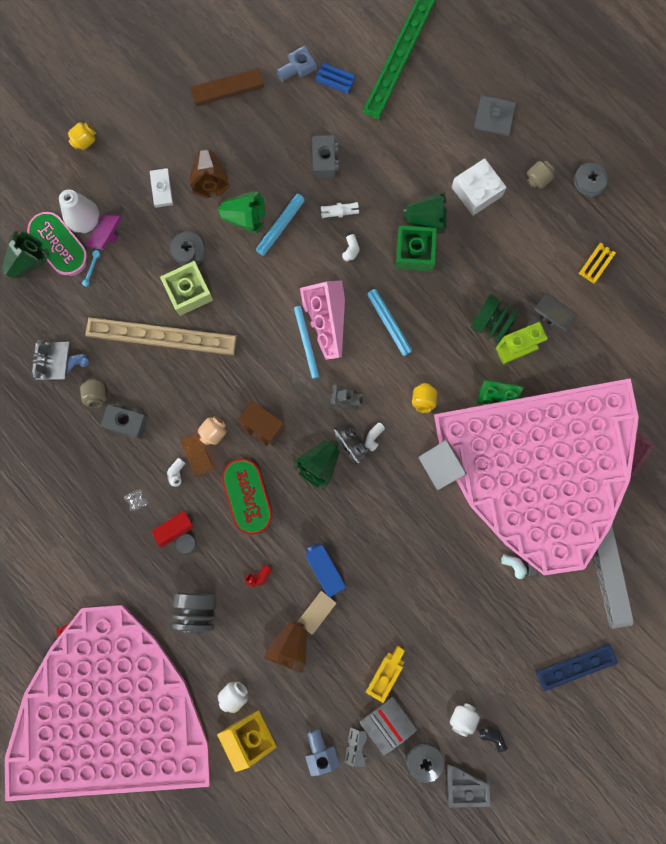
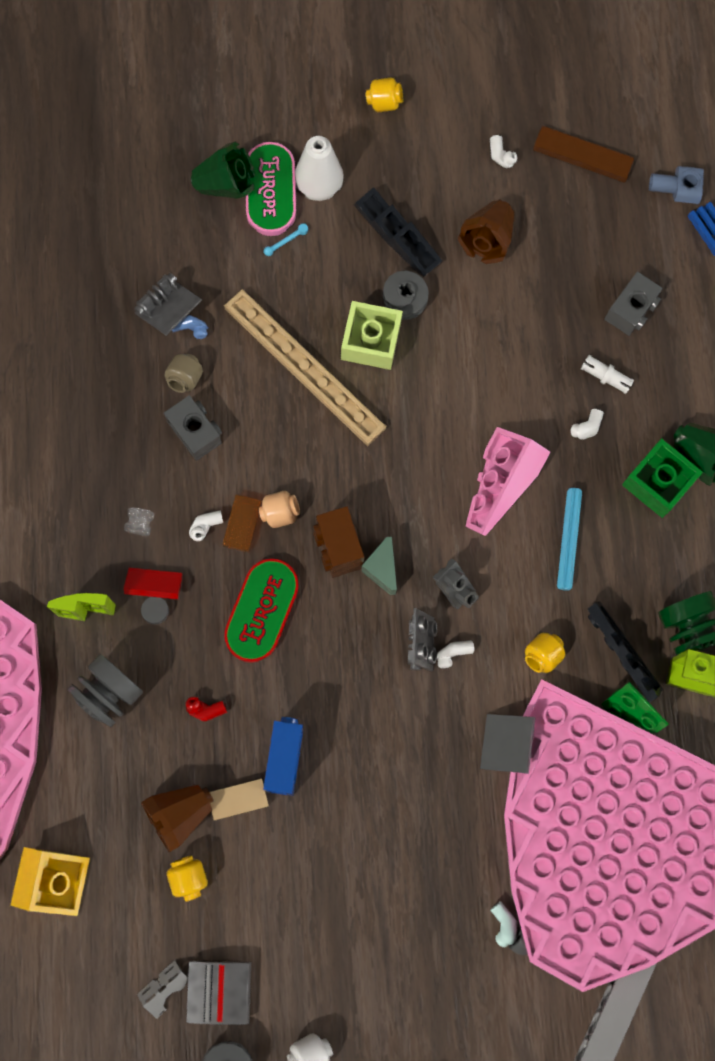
camera: 30 degrees right, 5 degrees down
(104, 232) = (329, 211): magenta piece -> none
(140, 576) = (77, 605): none -> lime slope
(155, 215) = (398, 234): none -> black slope
(161, 187) = (428, 208): white plate -> none
(183, 123) = (503, 158): none -> white arm
(233, 697) = (73, 820): white head -> none
(244, 211) = (499, 299): green cone -> none
(280, 224) = (528, 342): medium azure axle -> none
(296, 419) = (381, 567): none -> sand green slope
(306, 342) = (458, 491): medium azure bar -> none
(318, 463) = (368, 634): dark green cone -> none
(319, 750) = (121, 957): sand blue piece -> none
(322, 678) = (187, 878): none -> yellow head
(386, 675) = (260, 933): yellow hinge -> none
(471, 364) = (628, 656): none -> black wing

